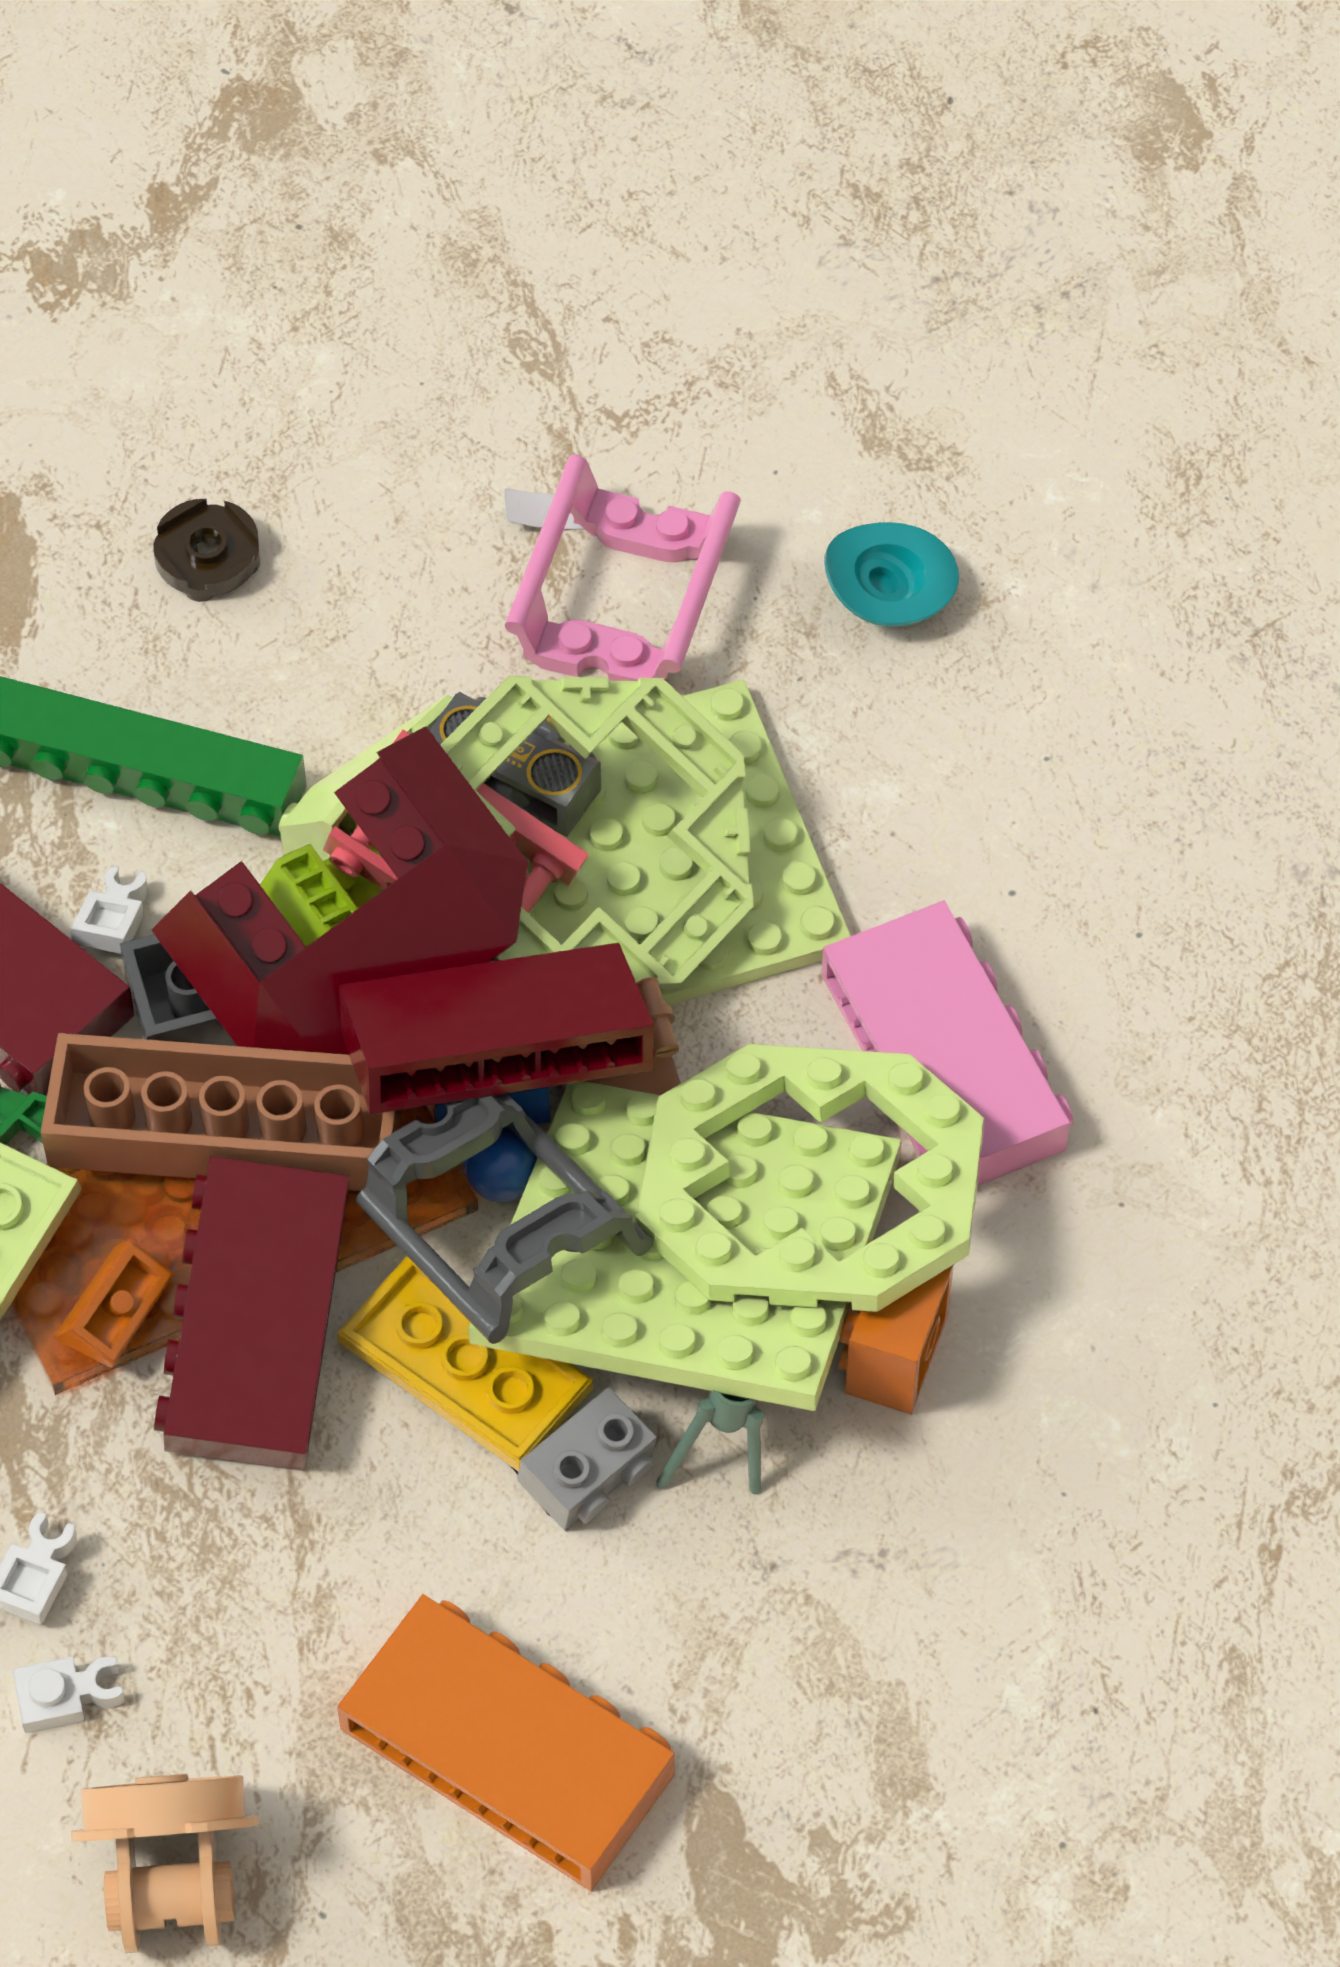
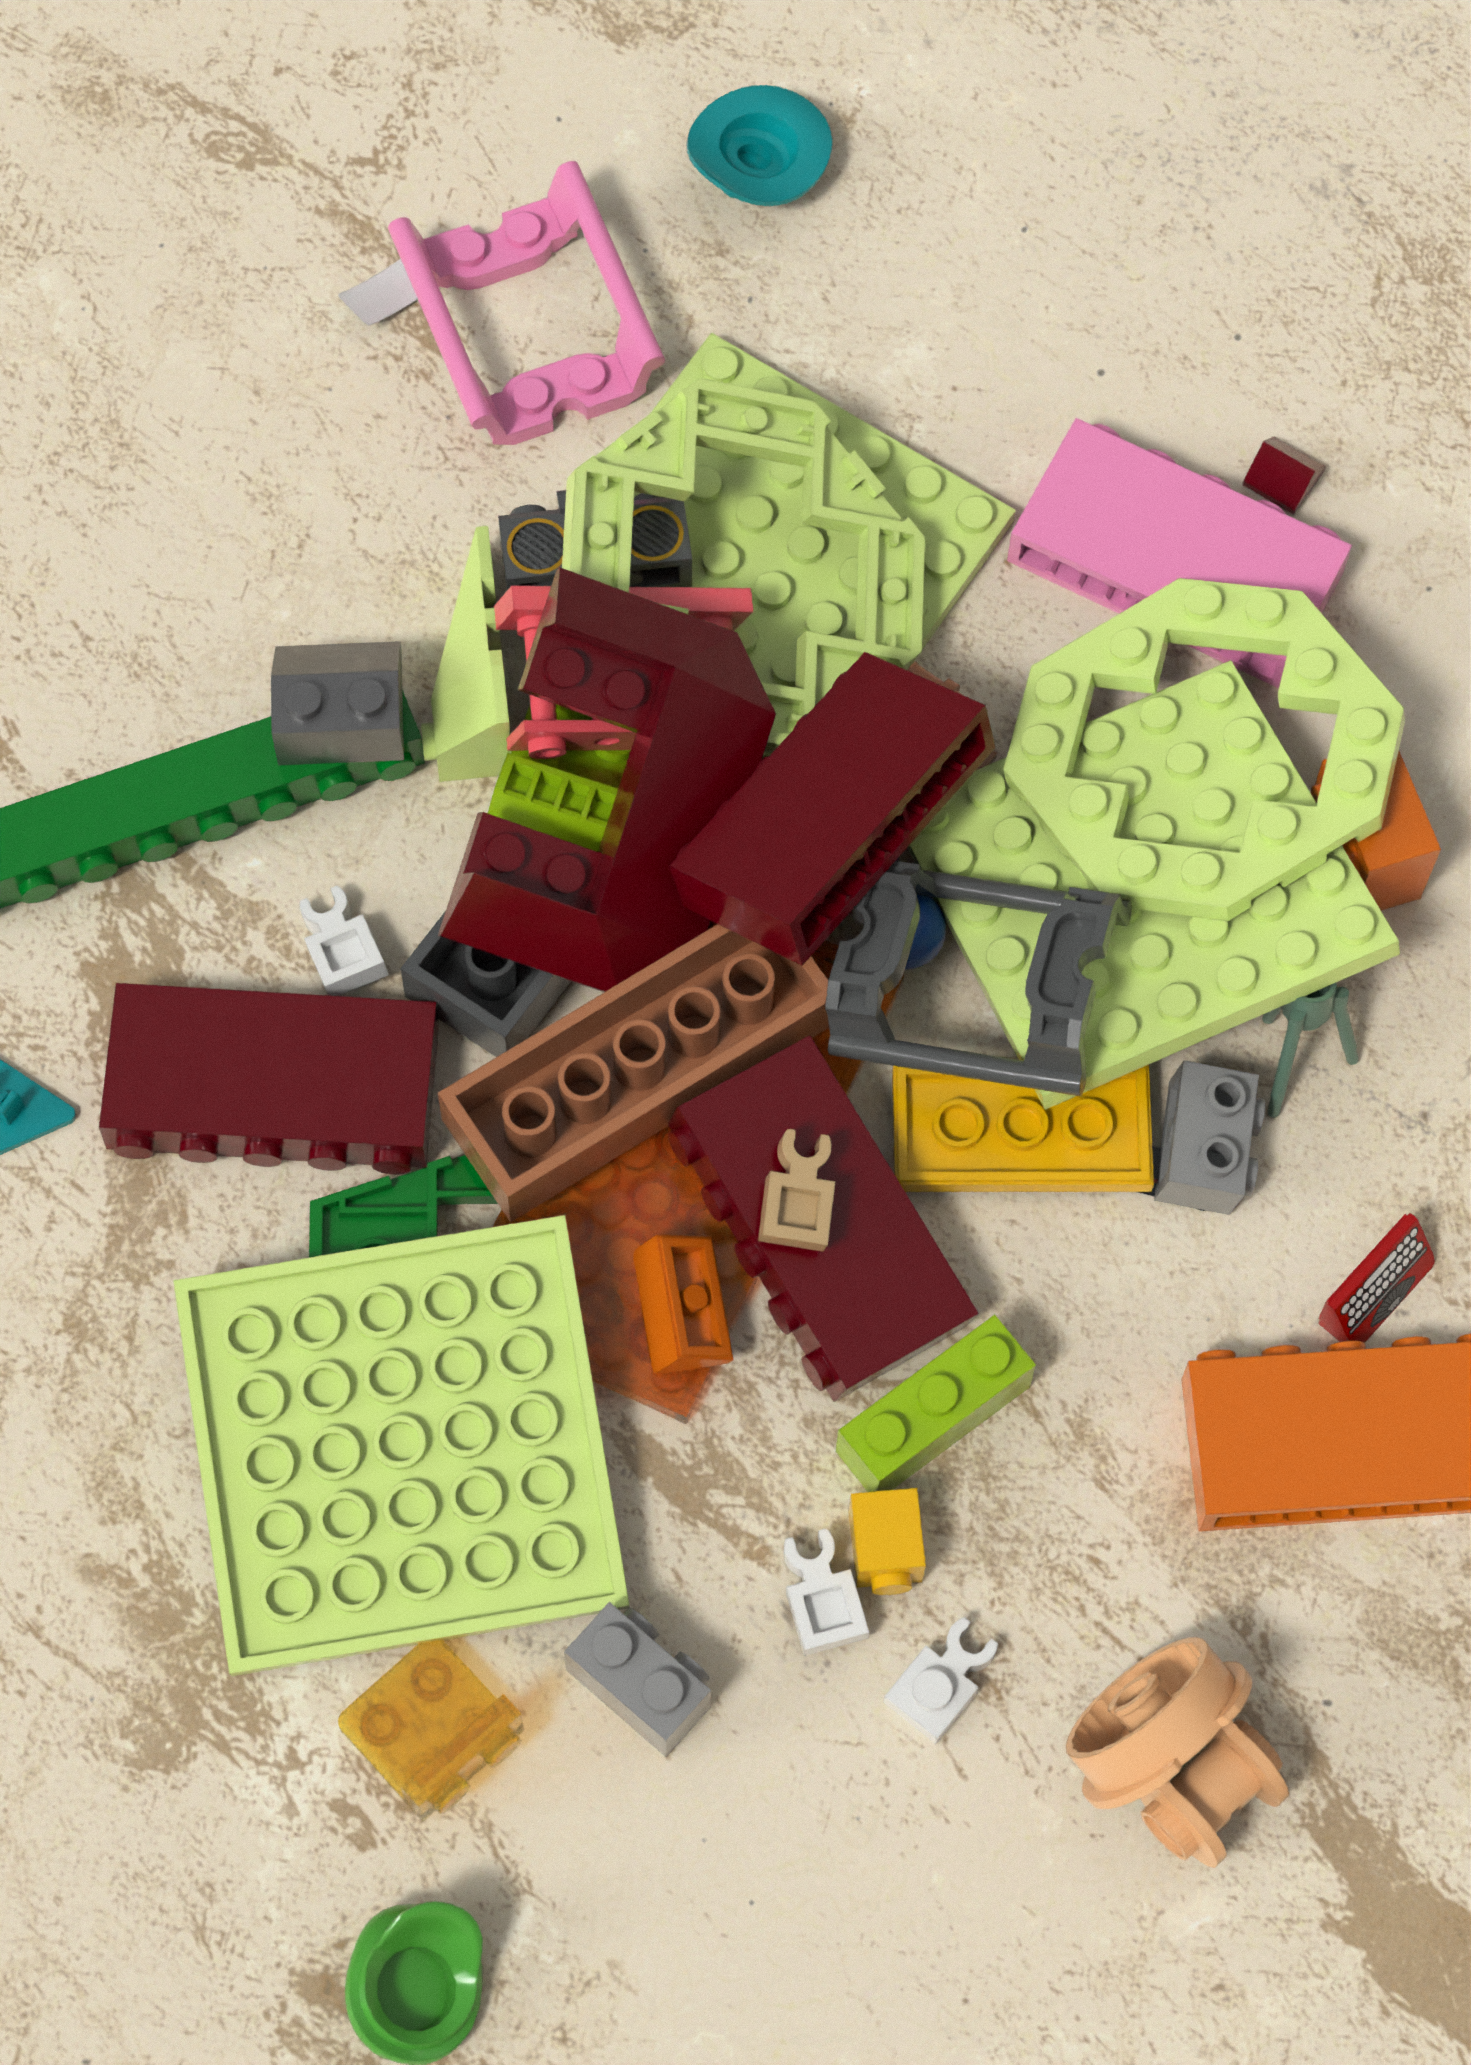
camera: 40 degrees left, 10 degrees up
(109, 1565) = (887, 1540): none -> yellow brick
(211, 573) = (118, 569): dark brown plate -> none
(222, 1500) = (935, 1407): none -> lime brick
(232, 1277) = (796, 1202): none -> tan plate
(237, 742) = (337, 703): none -> flat silver slope
(622, 1650) = (1379, 1283): none -> slope
(1080, 1047) = (1282, 474): none -> dark red slope

